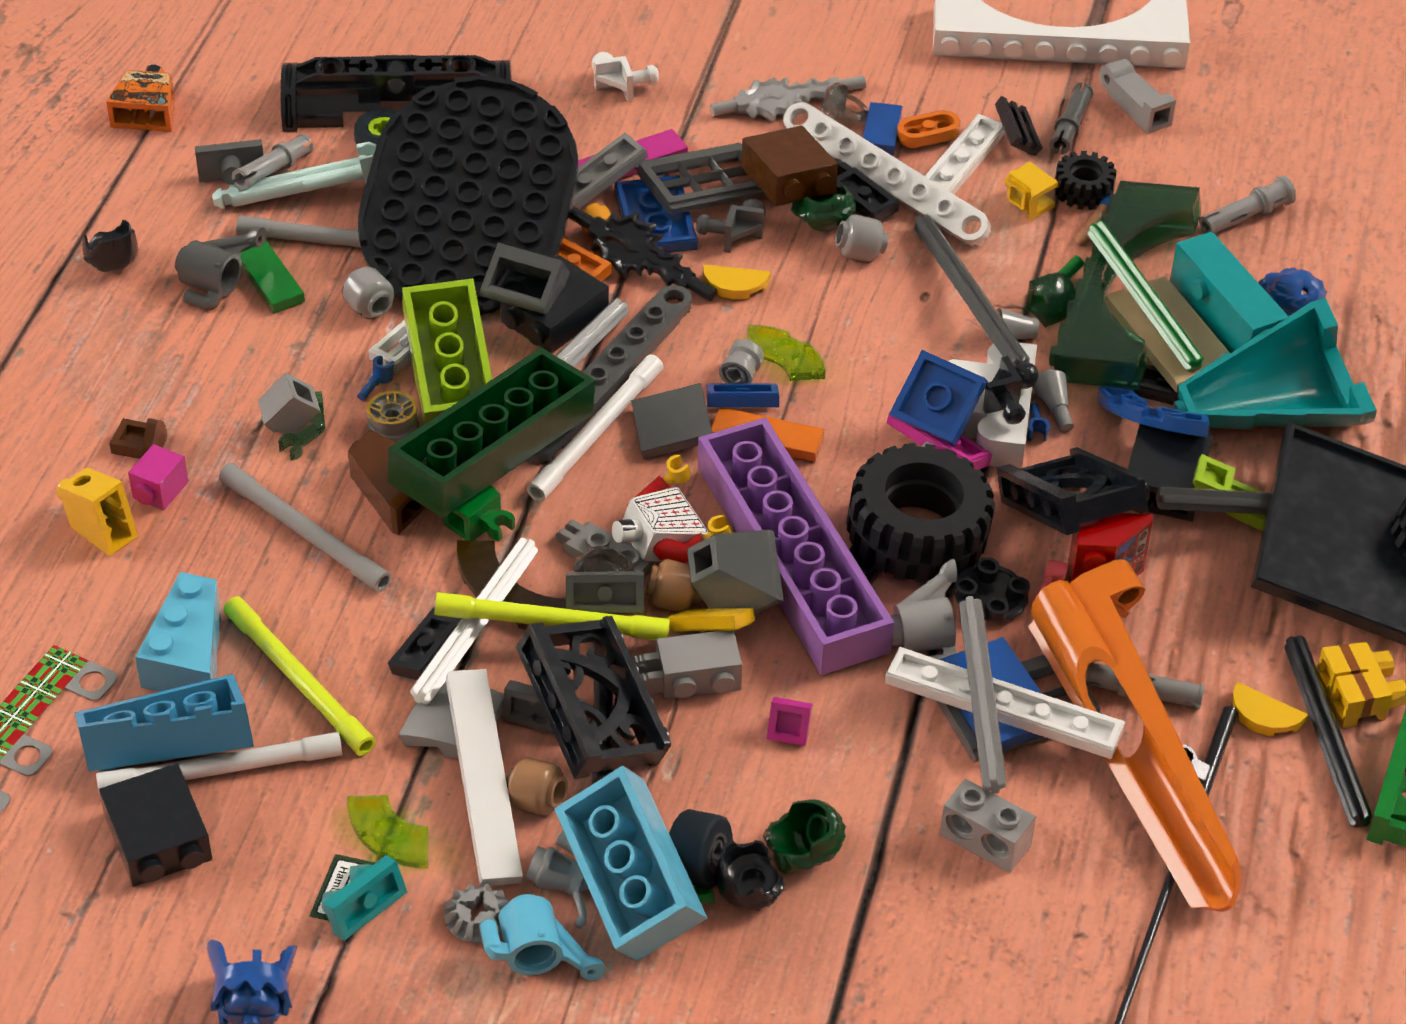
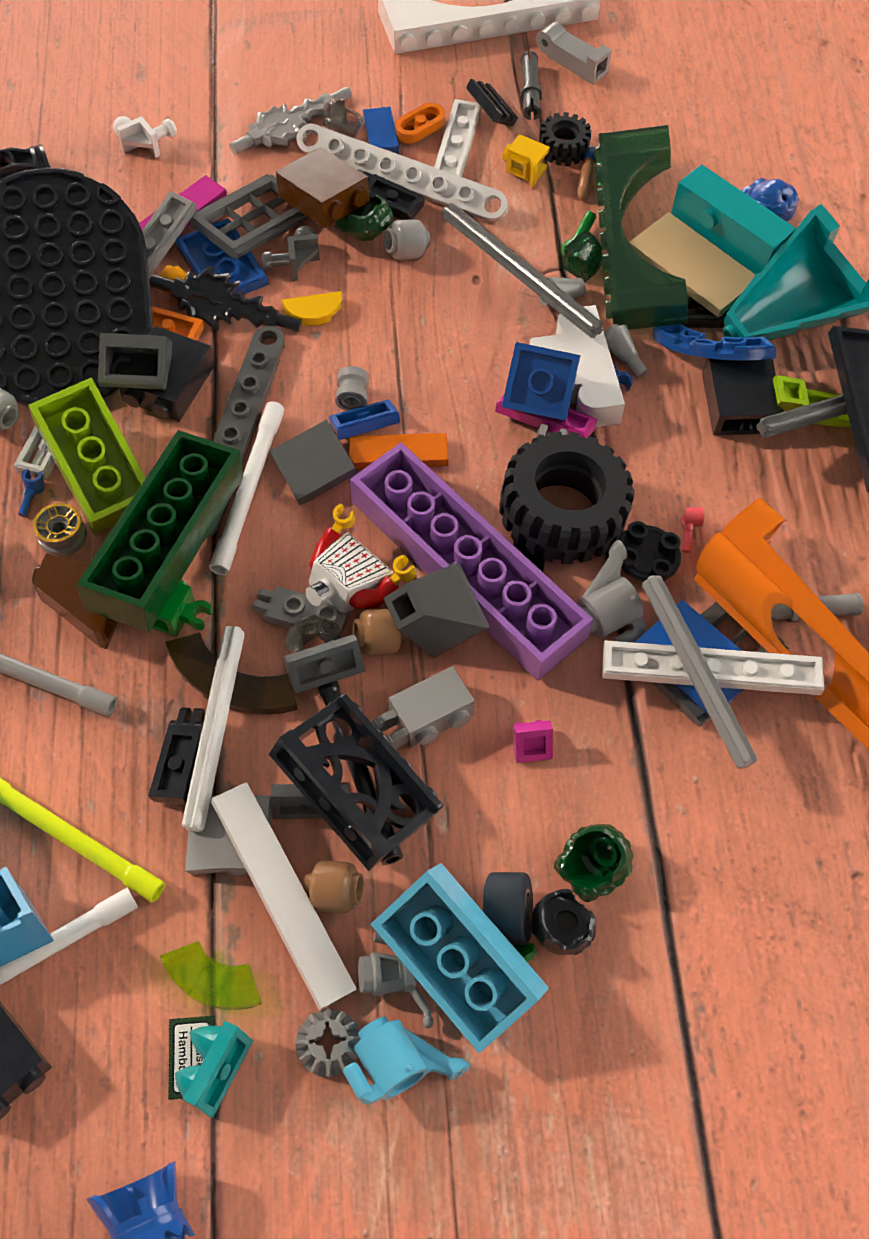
camera: 20 degrees left, 15 degrees up
(468, 607) = (208, 721): neon yellow piece -> none
(593, 332) = (208, 395): light grey axle -> none
(711, 619) = (427, 659): yellow tile -> none
(794, 357) = (386, 365): clear neon green tile -> none
(987, 825) = (745, 795): light grey brick -> none
(1006, 387) = (593, 358): black piece -> none
(1040, 495) = (651, 447): black fence -> none
(1110, 539) = (730, 488): red slope -> none
(1145, 296) = (666, 236): axle -> none
(1260, 202) = (708, 125): light grey pin -> none

